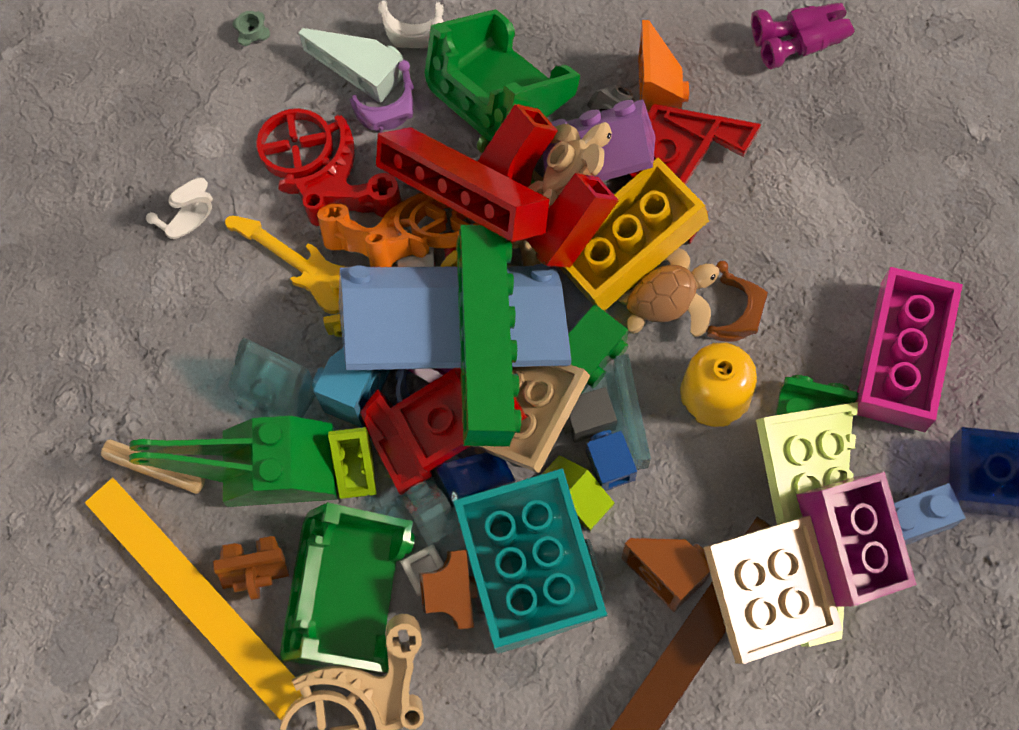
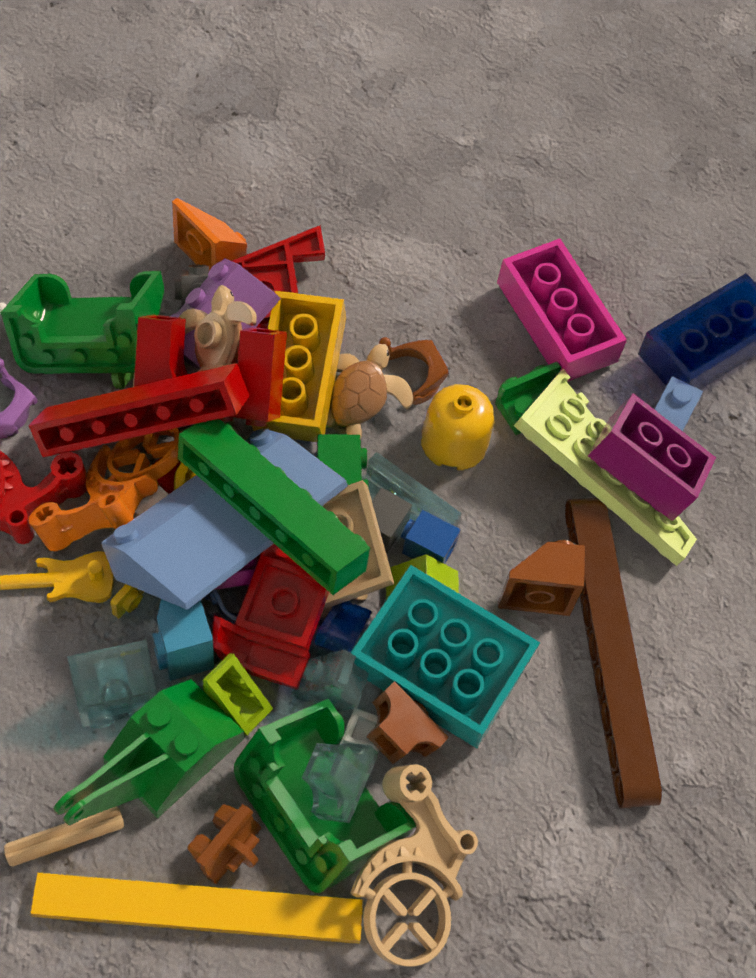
camera: 55 degrees left, 10 degrees down
(367, 587) = (338, 778): none -> clear light blue brick
(772, 589) = (634, 531): plate -> none
(810, 27) = (286, 139): magenta piece -> none

